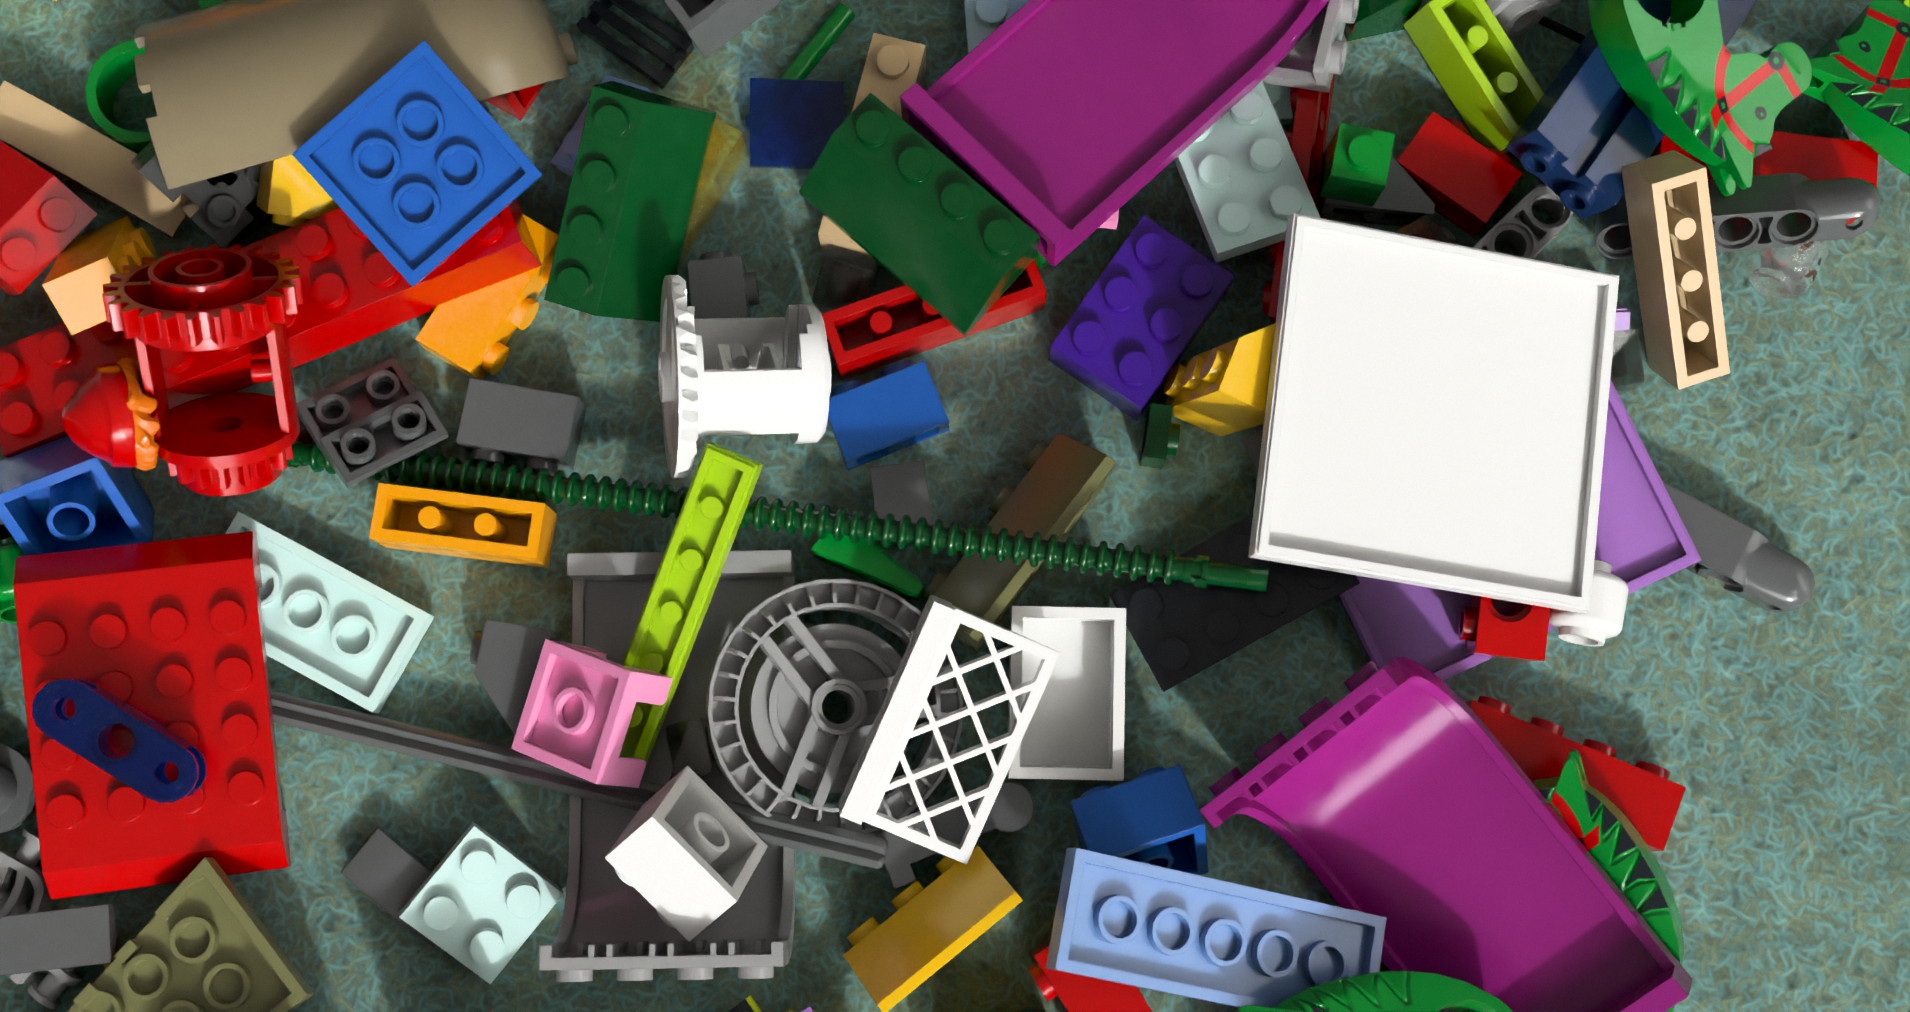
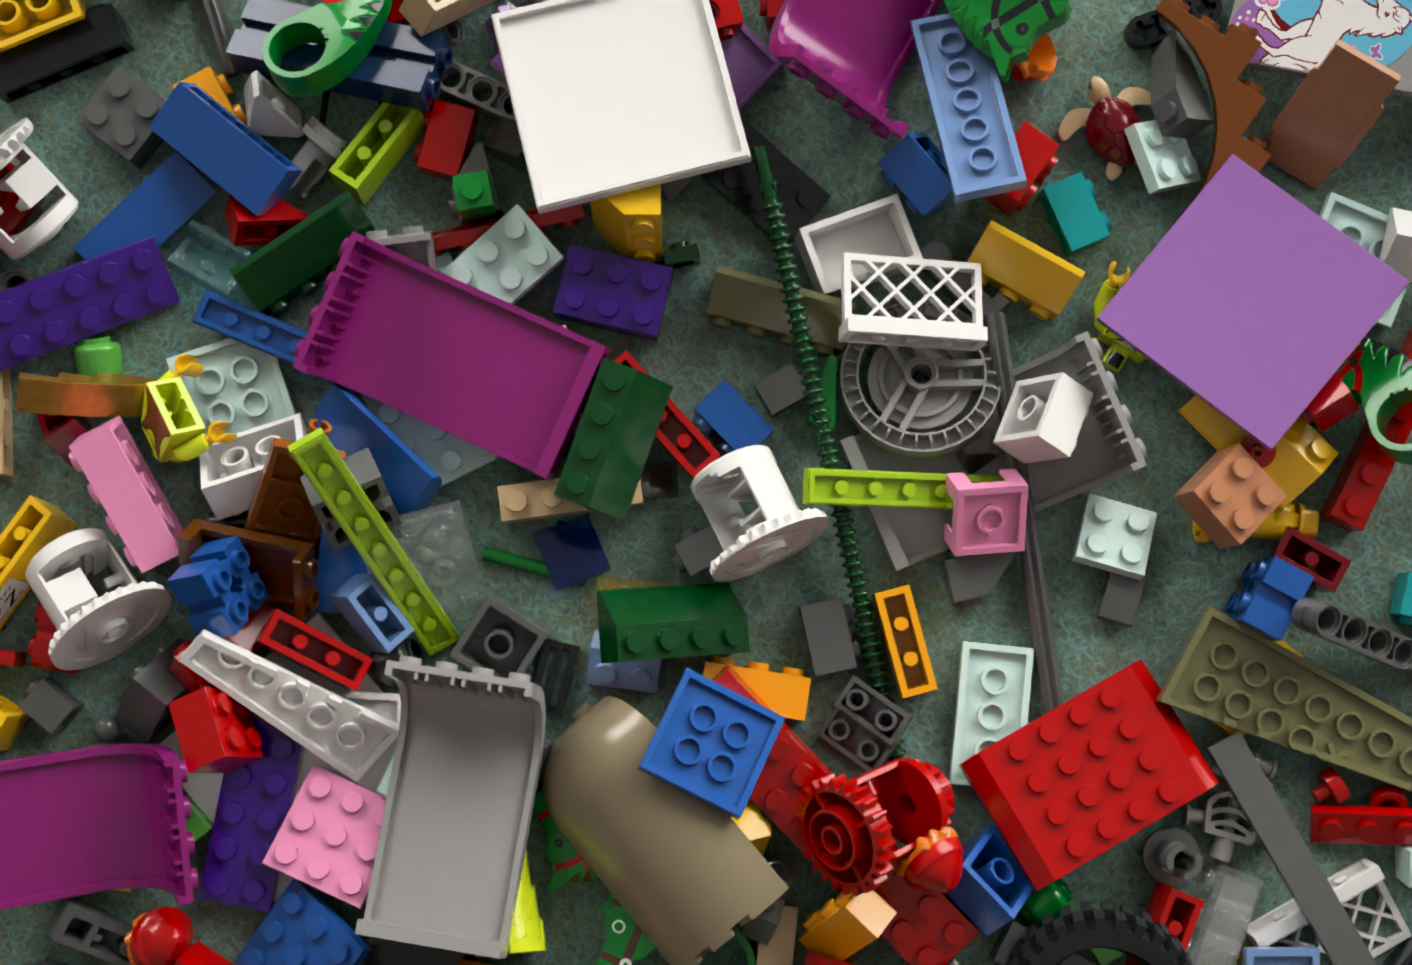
camera: 110 degrees left, 5 degrees up
(89, 733) = (1108, 789): clear blue piece -> none

